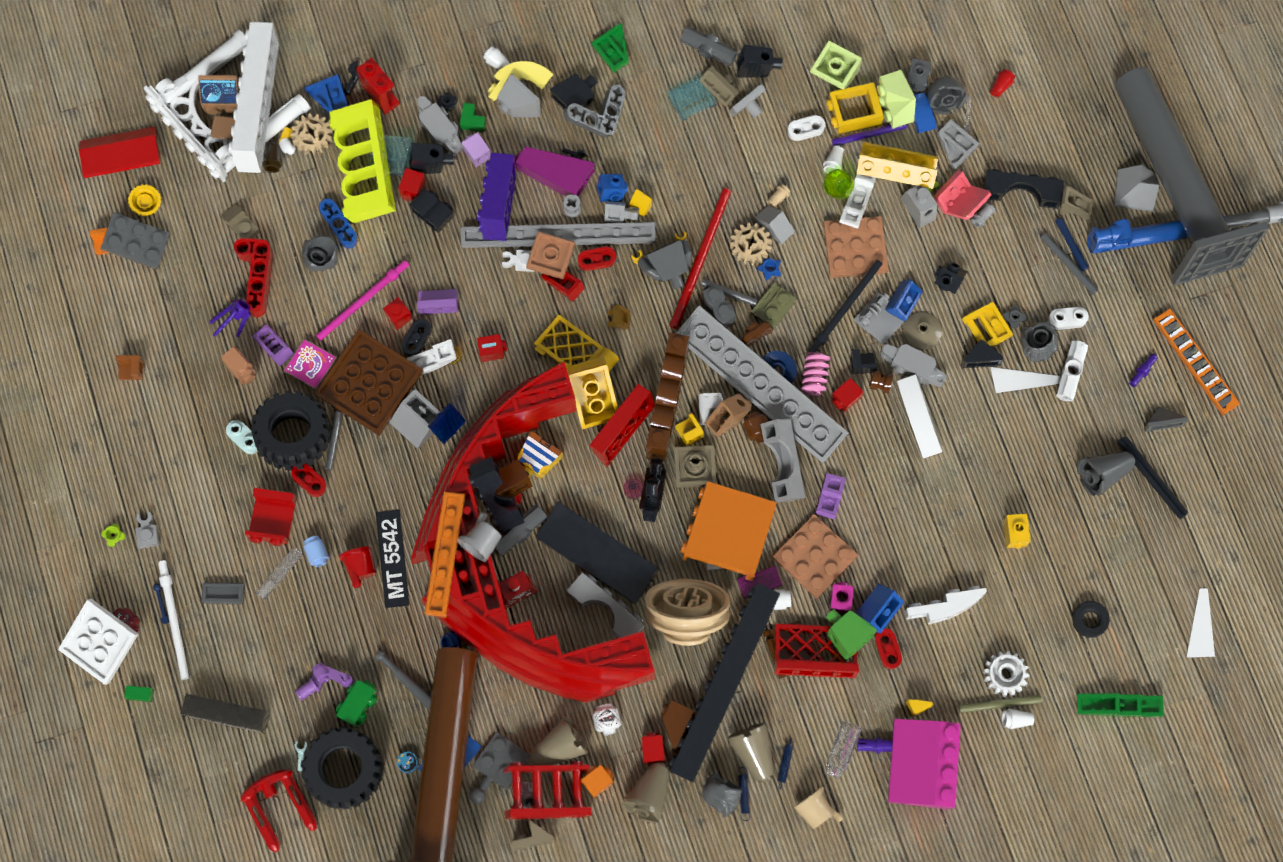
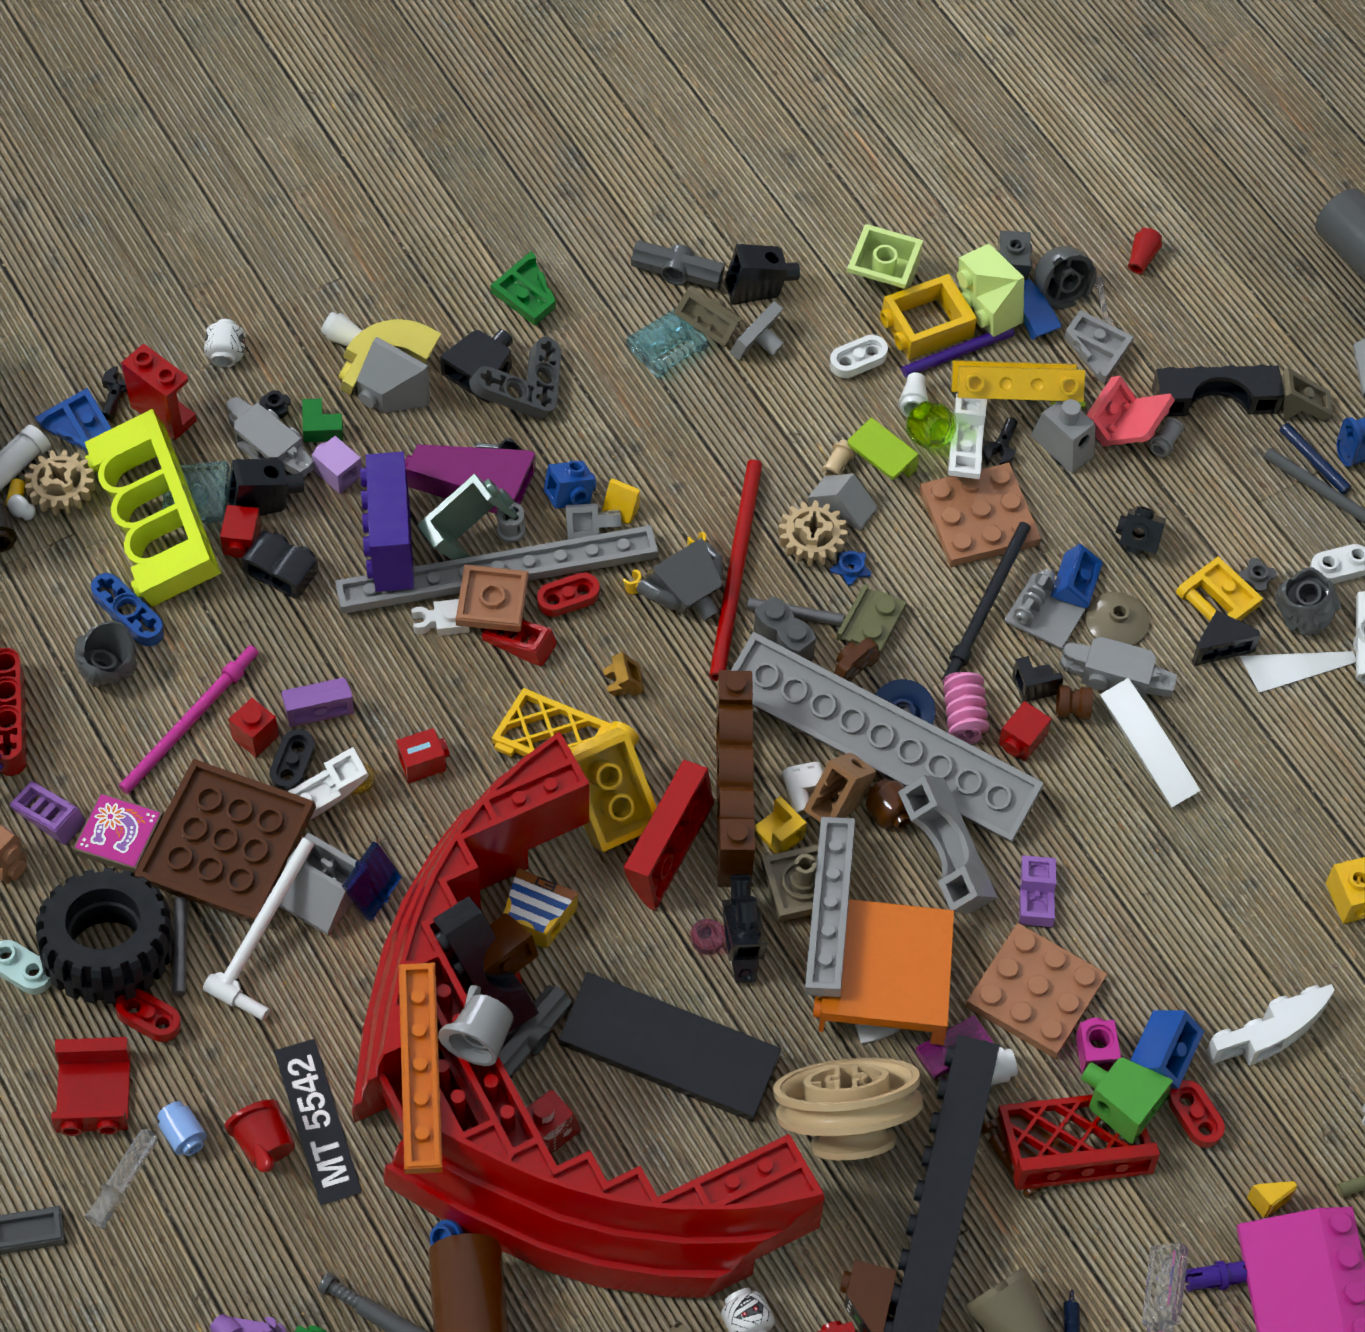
camera: 15 degrees left, 15 degrees down
(354, 469) = (225, 985): none -> white bar
(424, 56) = (224, 343): none -> white head
(529, 206) = (461, 512): none -> sand green panel
(586, 592) = (667, 1112): light grey arch -> none
(704, 488) = (830, 907): none -> light grey plate
(805, 196) = (883, 450): none -> lime panel
(880, 202) = (1002, 444): none -> black bar

